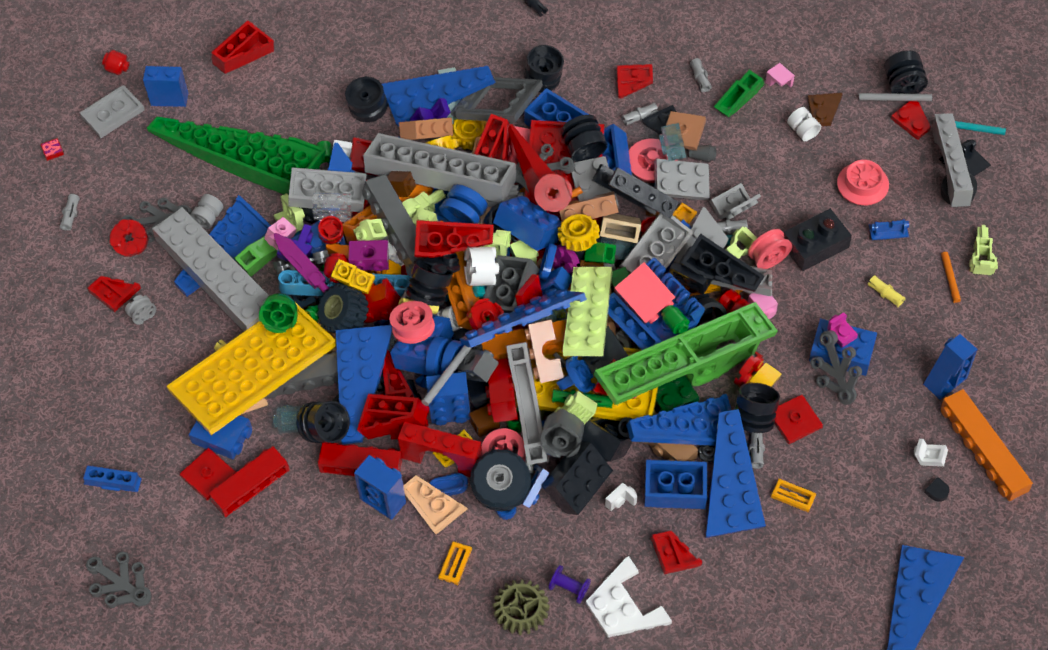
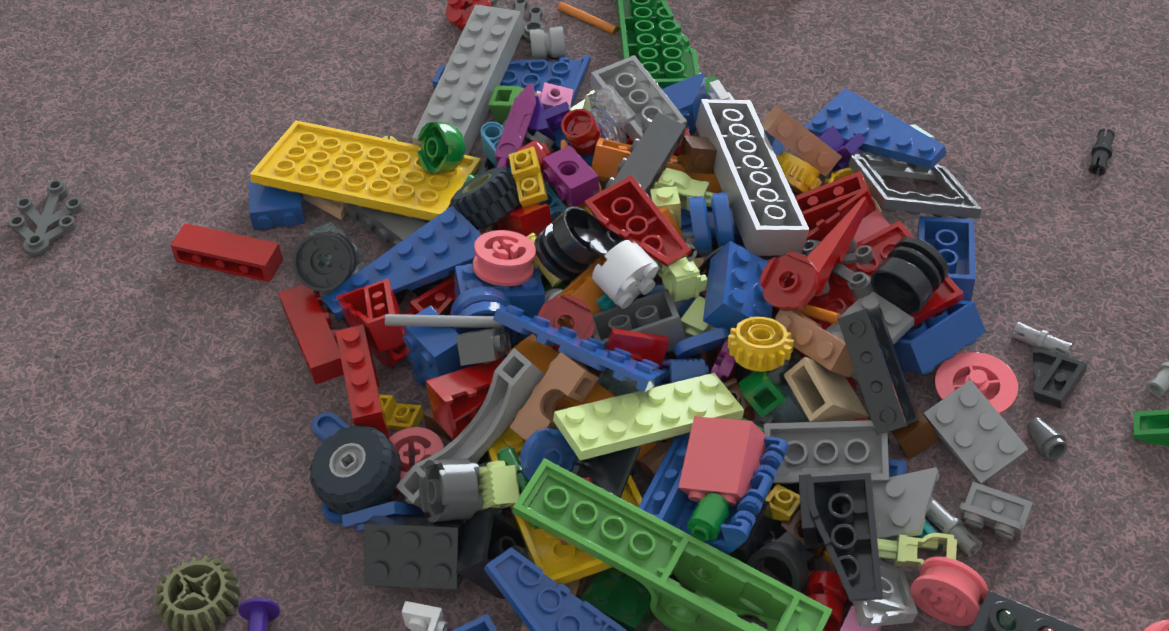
camera: 60 degrees right, 10 degrees down
(113, 291) = (395, 33): red wing -> none
(114, 484) = (167, 149): blue piece -> none
(140, 309) = (385, 59): light grey wheel -> none
(195, 178) = (588, 18): none -> orange bar
(206, 473) = (222, 214): red plate -> none
(366, 99) = (806, 83): black wheel -> none
(370, 230) = (608, 157): yellowish green brick -> none
(380, 486) = (272, 358): blue brick -> none
(432, 504) = (295, 429): light nougat wing -> none
(449, 578) = (229, 500): light orange tile -> none
(545, 64) = (1006, 206): black wheel -> none
(633, 78) = (1089, 304): red wing -> none
(672, 142) = (1012, 383): clear light blue brick -> none
(684, 212) = (925, 462): light orange tile -> none
(690, 126) = (1054, 394): nougat plate -> none

